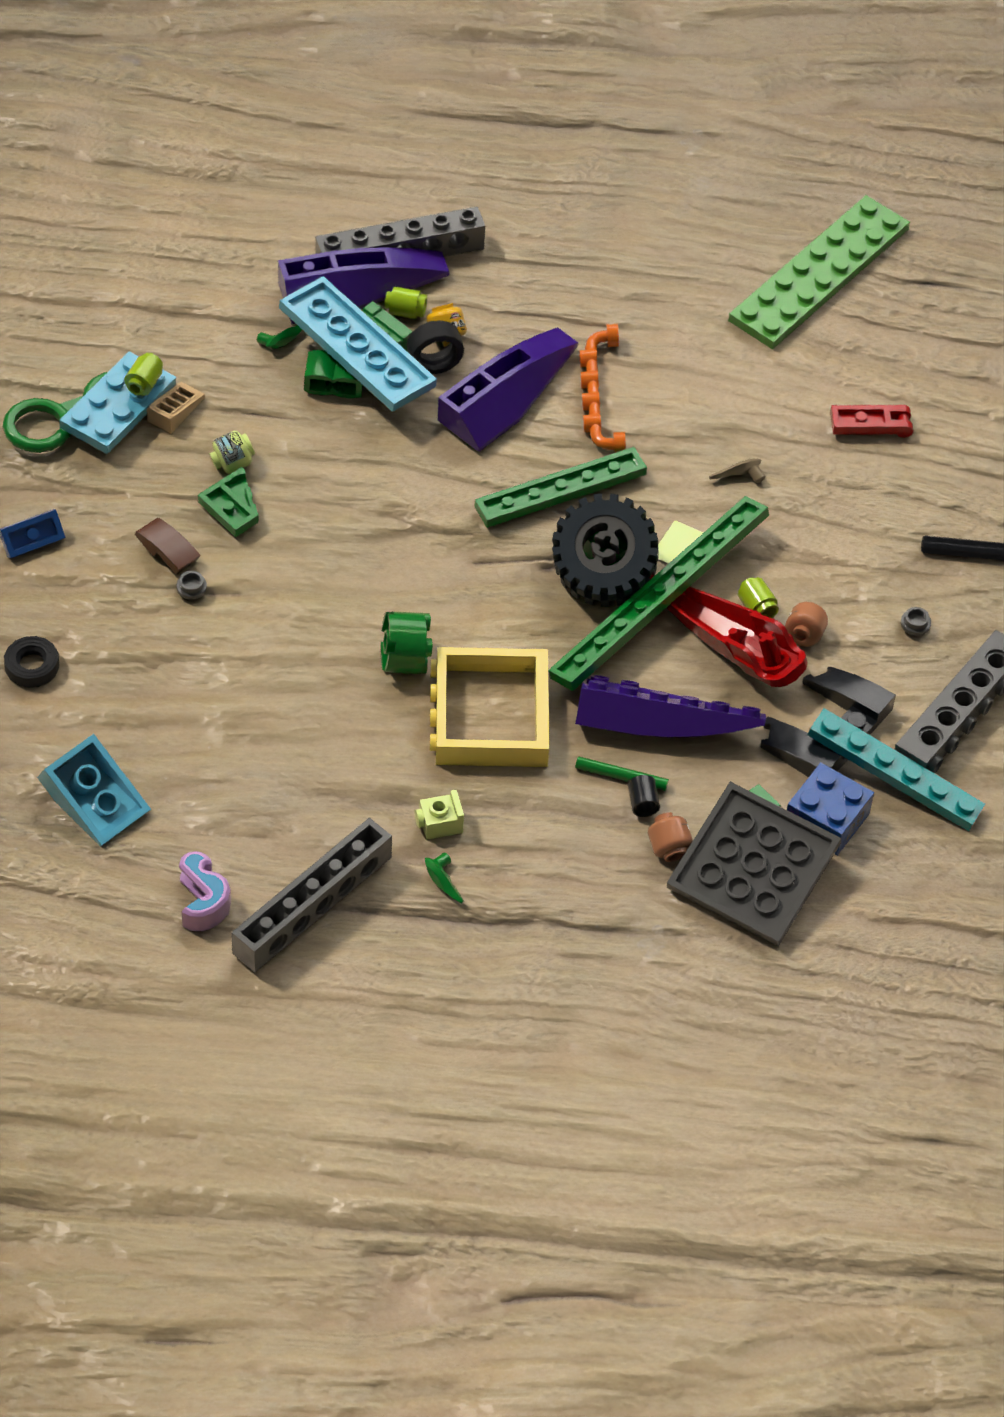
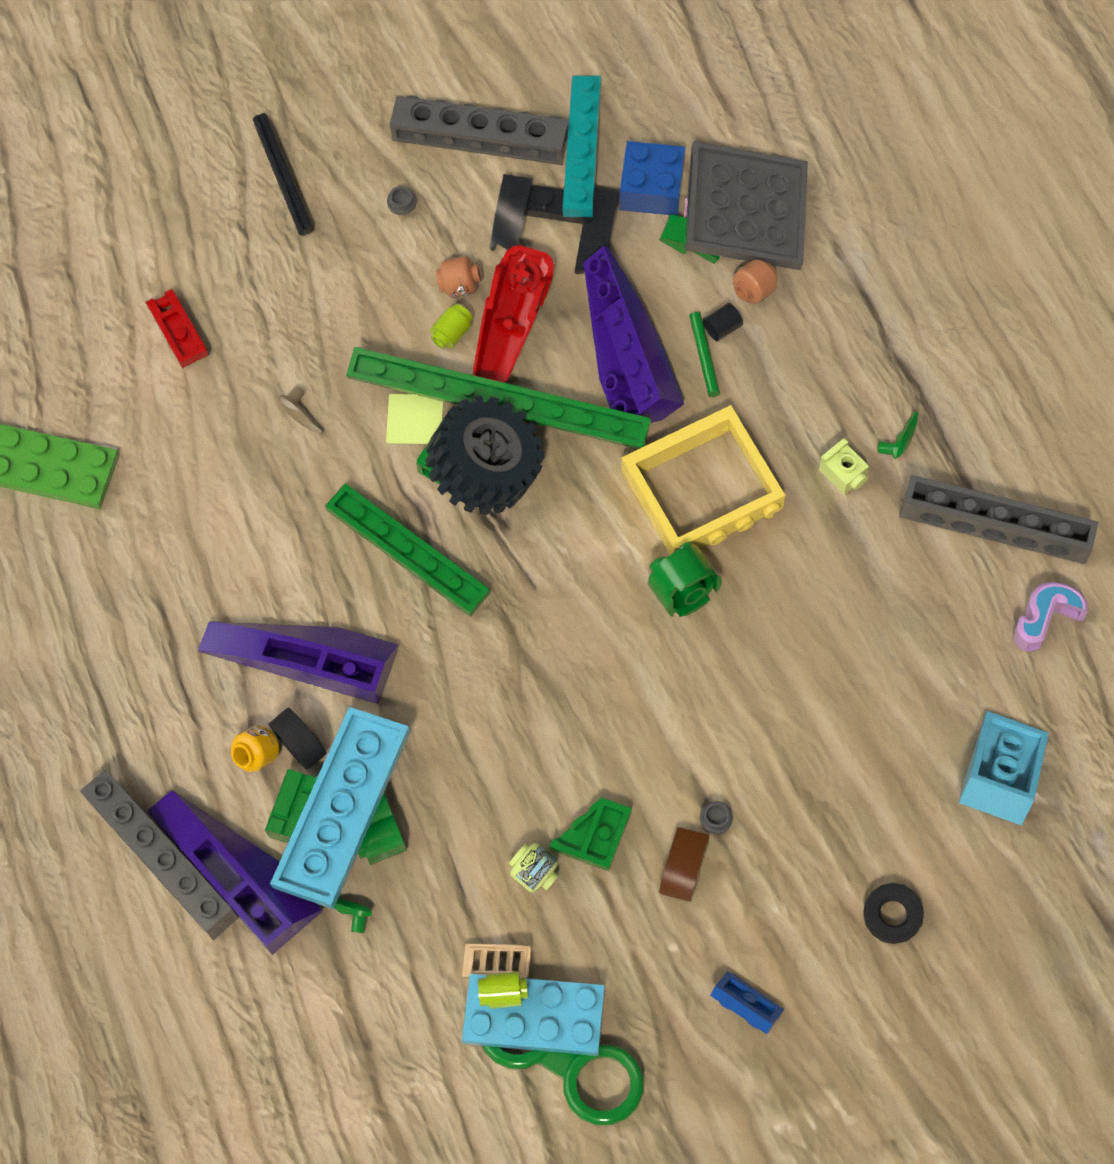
camera: 110 degrees left, 15 degrees up
(406, 302) = (240, 807): lime brick -> none
(590, 381) = (253, 587): orange bar -> none

